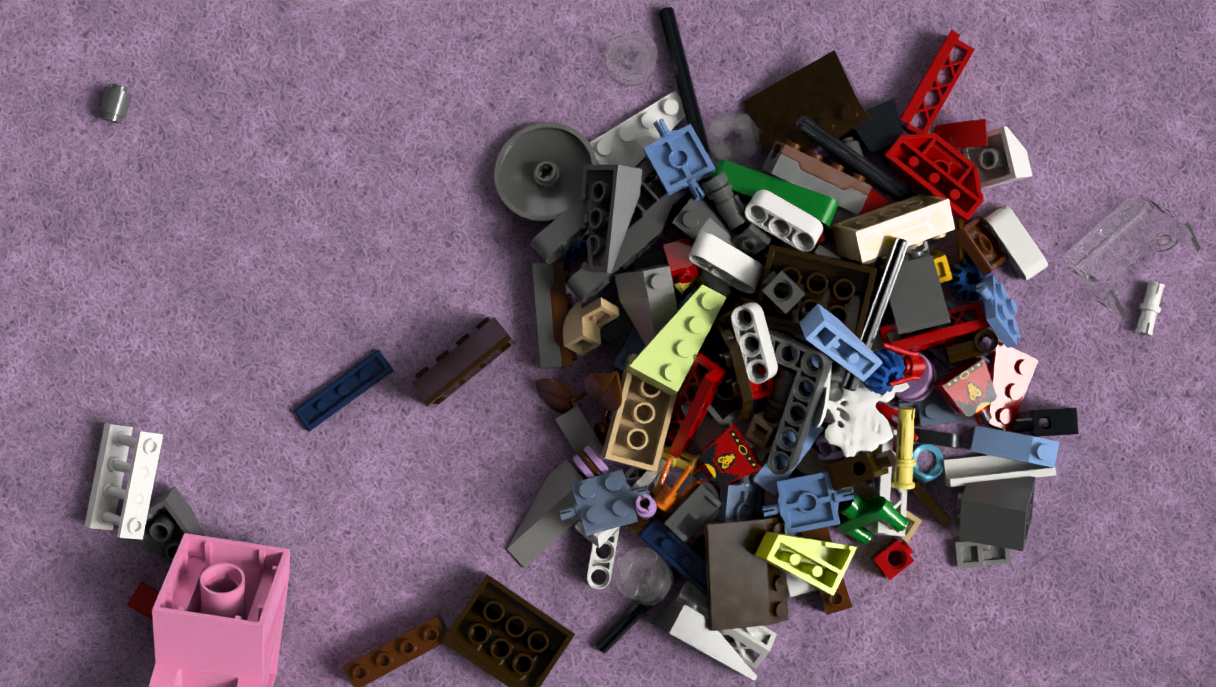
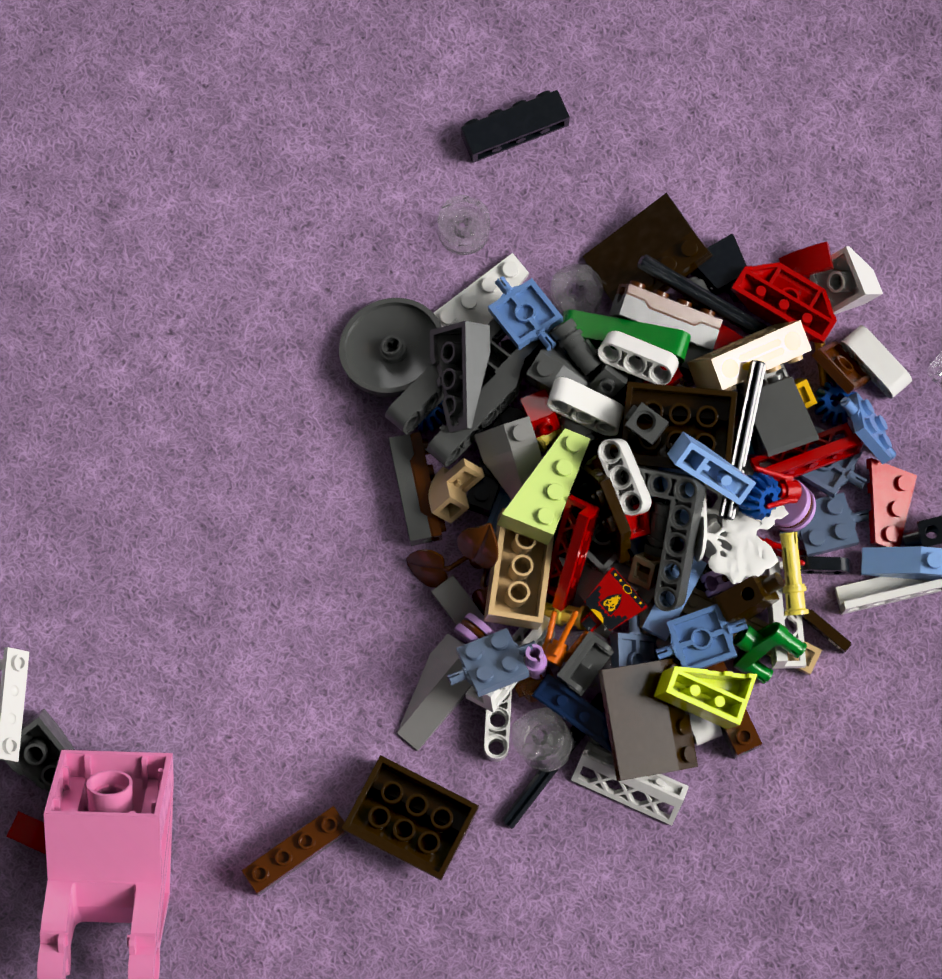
camera: 10 degrees left, 10 degrees down
(344, 390) = (209, 591): dark blue tile -> none
(462, 363) = (331, 544): dark brown slope -> none
(682, 73) = (516, 231): black axle -> none
(692, 628) = (597, 784): wedge -> none
(880, 558) = (793, 703): red brick -> none
(931, 77) = (767, 209): red fence -> none
(934, 473) = (819, 606): medium azure piece -> none
(968, 347) = (843, 467): dark brown piece -> none
(968, 390) = (849, 509): torso -> none
(980, 555) = (890, 676): light grey slope -> none
(997, 512) = (896, 629): dark grey slope -> none

